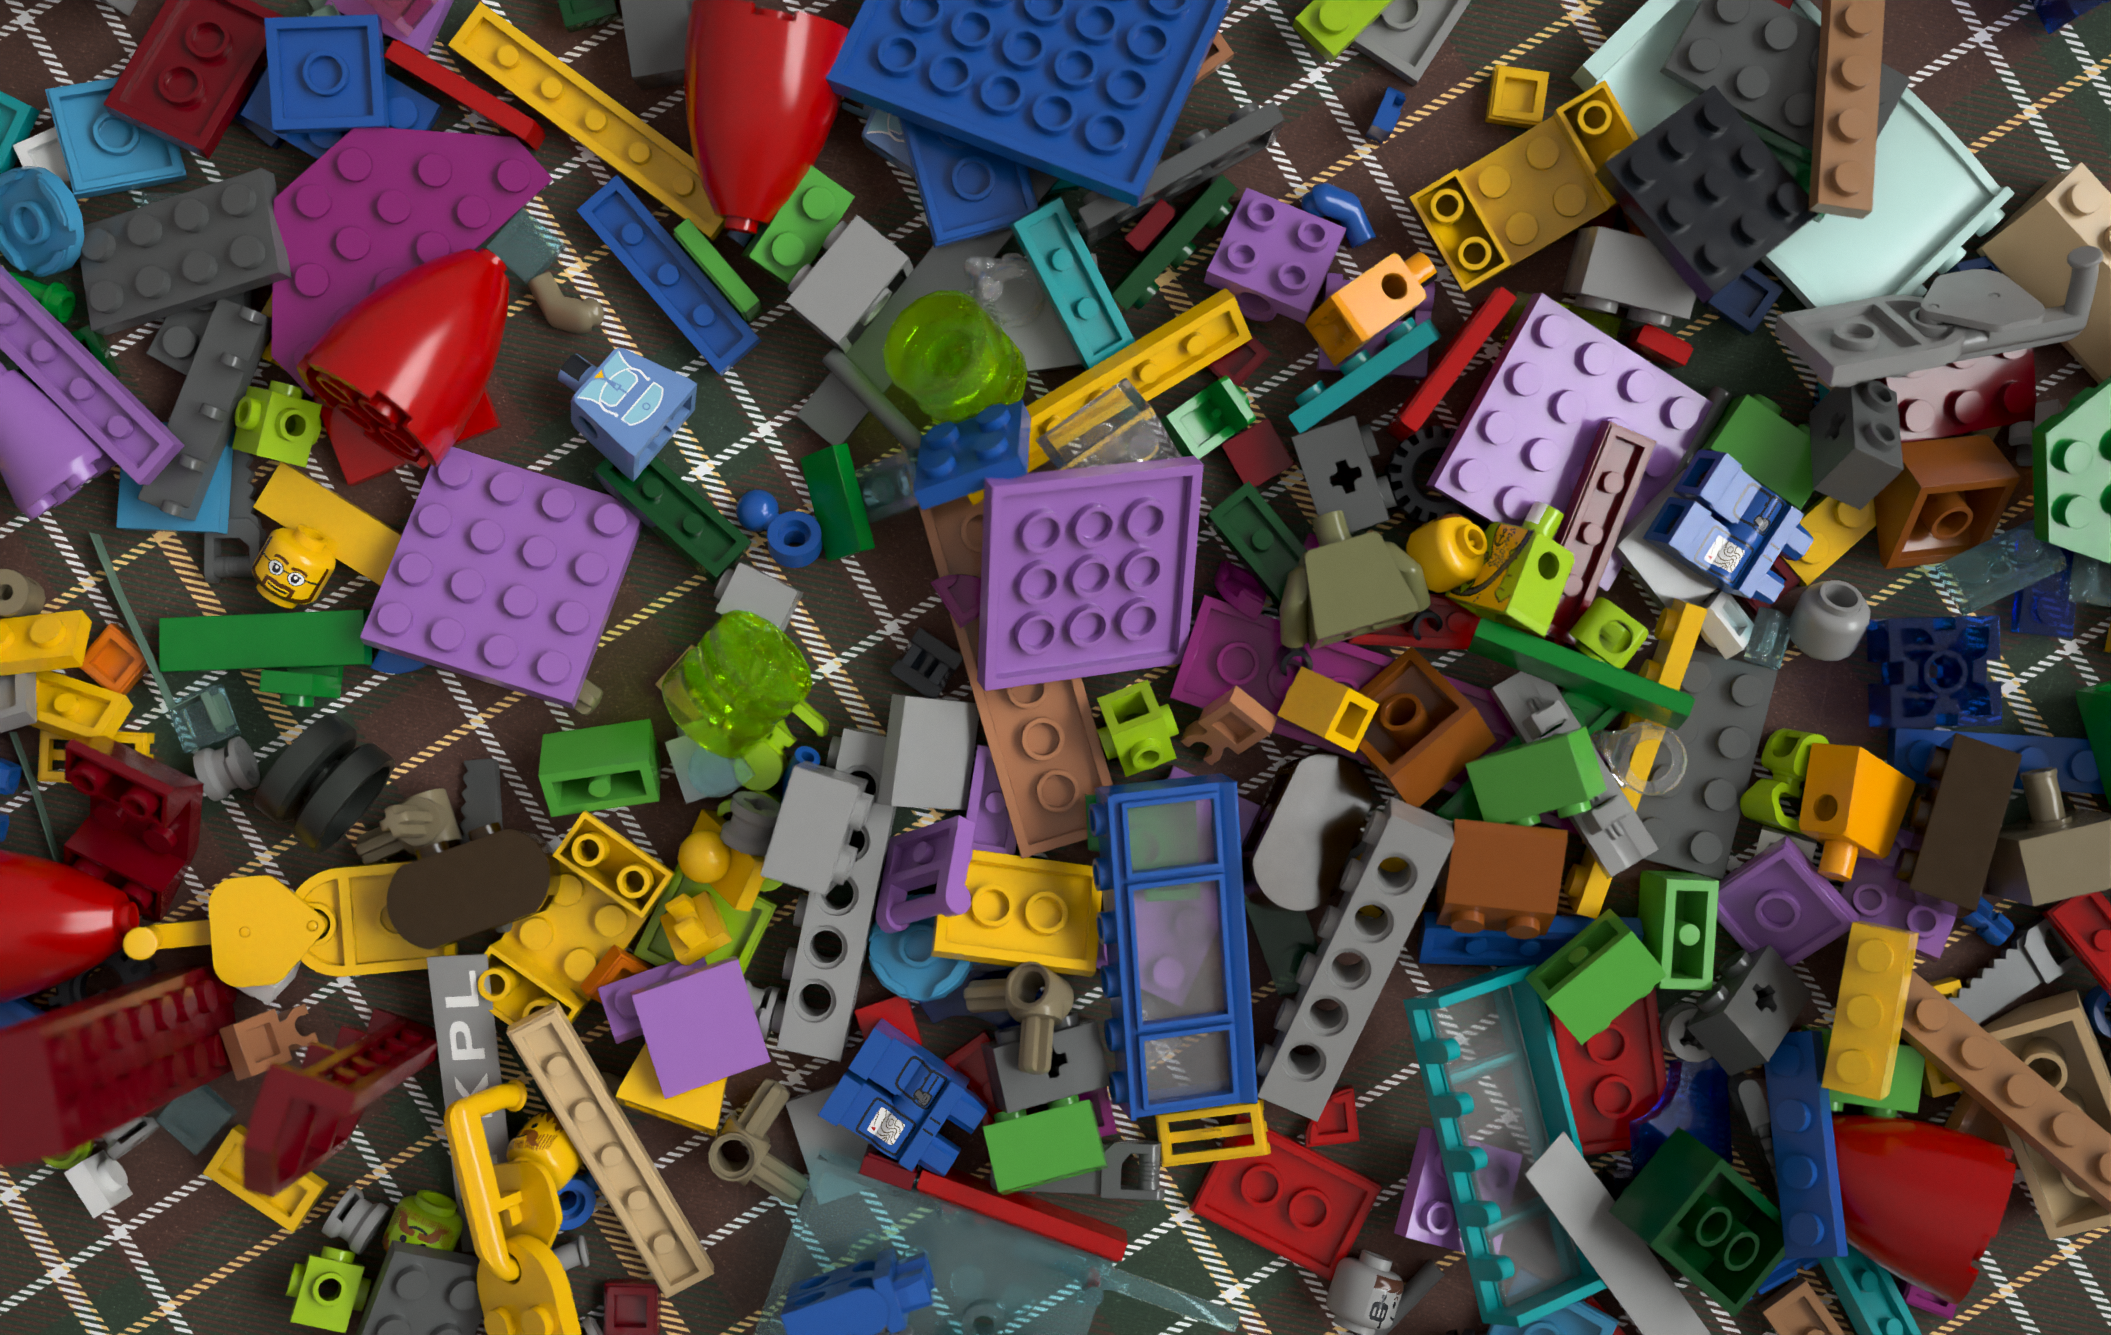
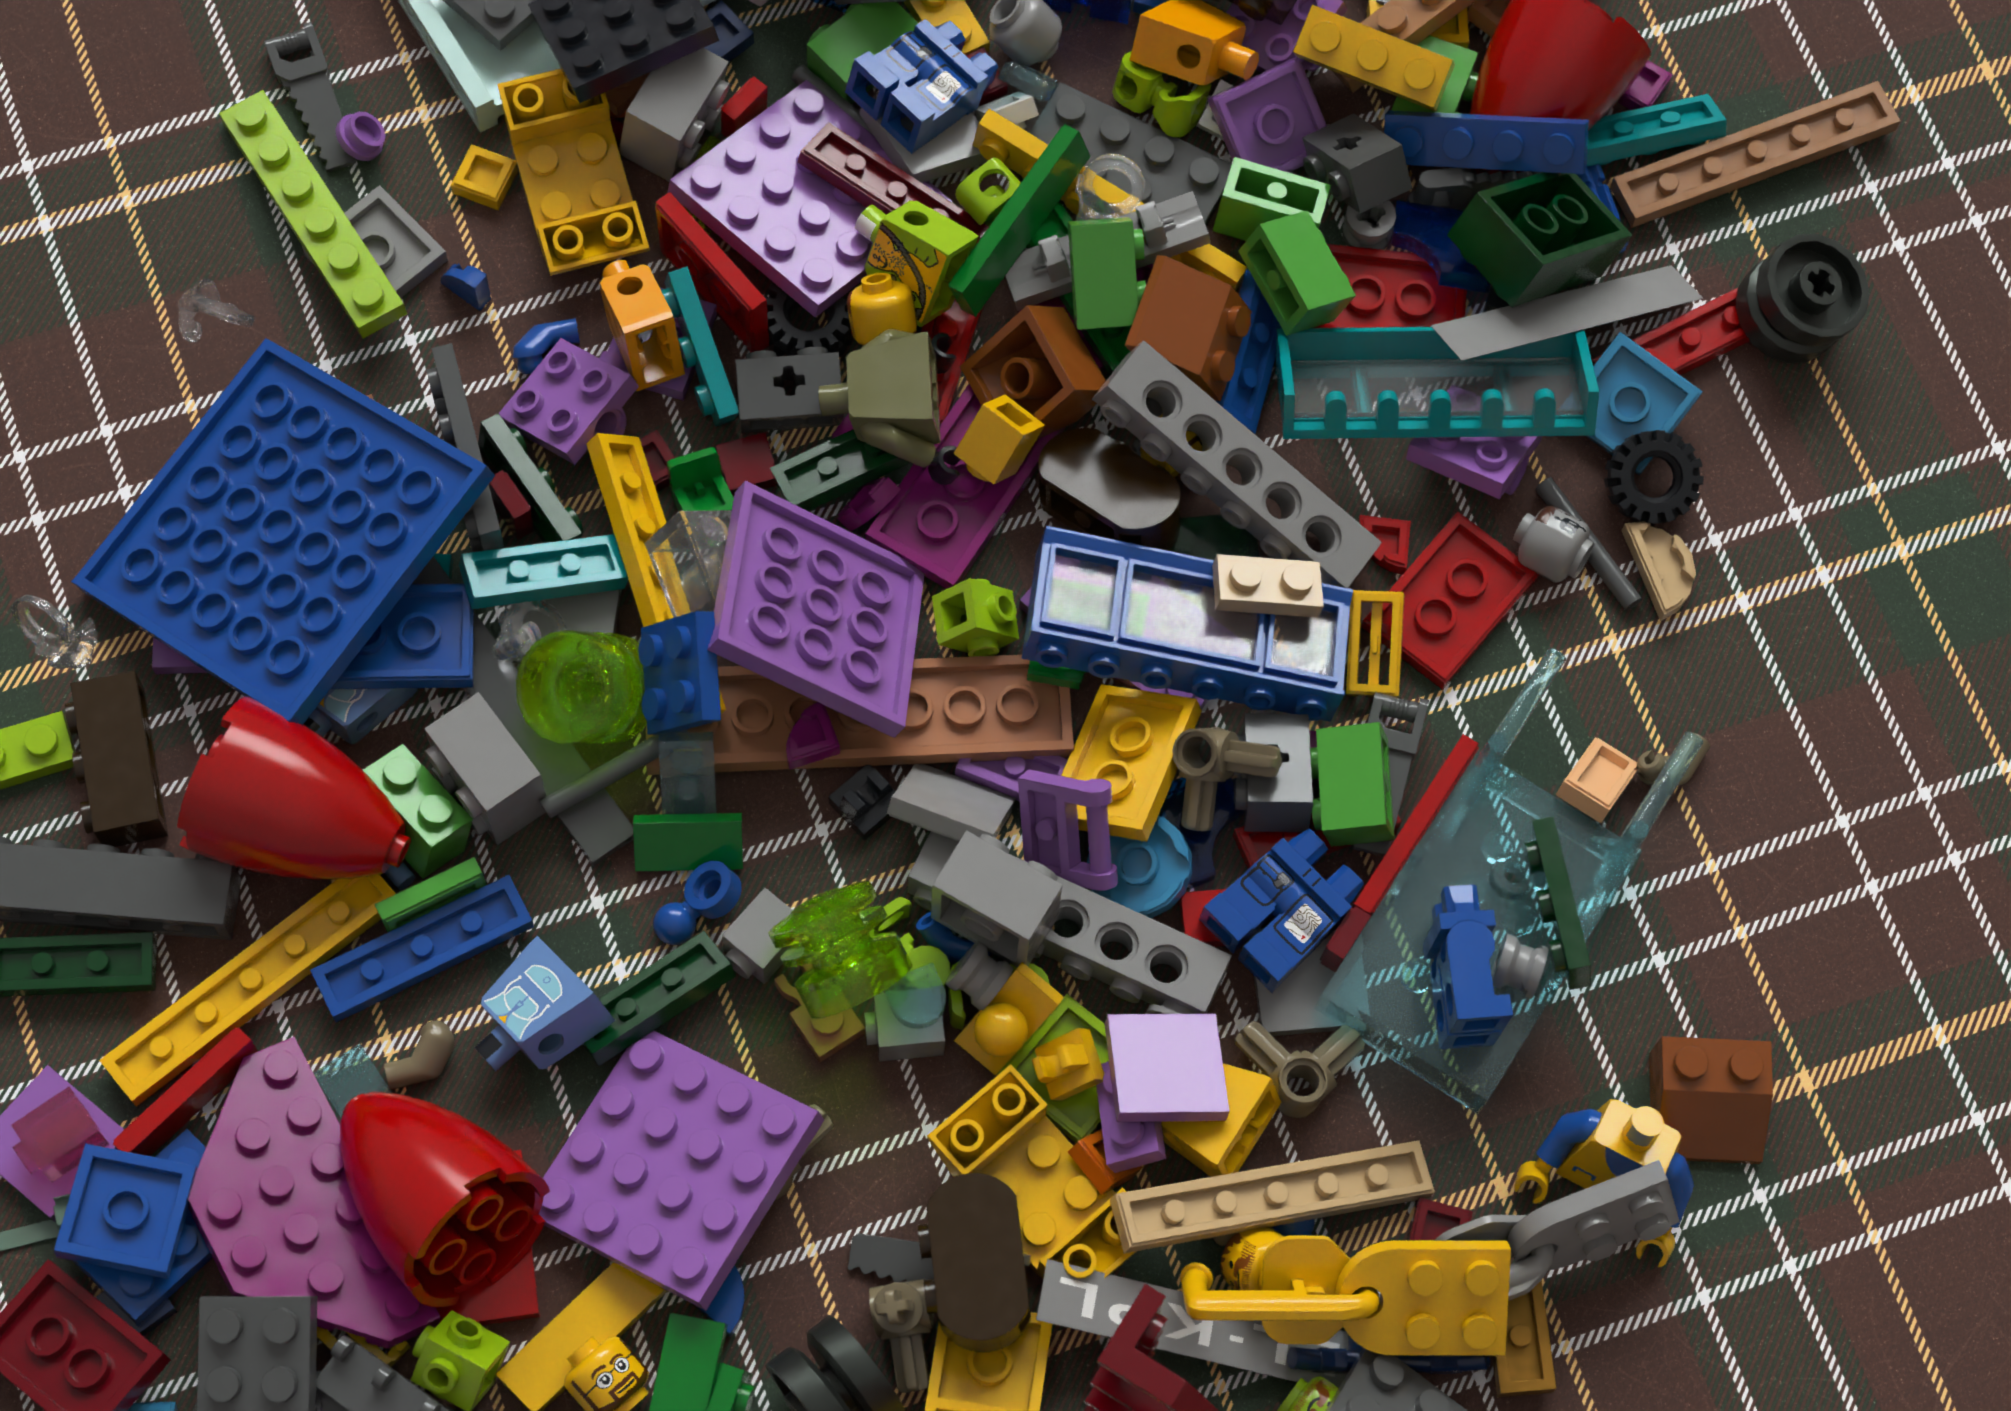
camera: 80 degrees left, 20 degrees down
(600, 768) = (888, 1119): bright green brick -> none
(1230, 1019) = (1267, 586): none -> tan plate
(1232, 722) = (989, 531): nougat plate -> none

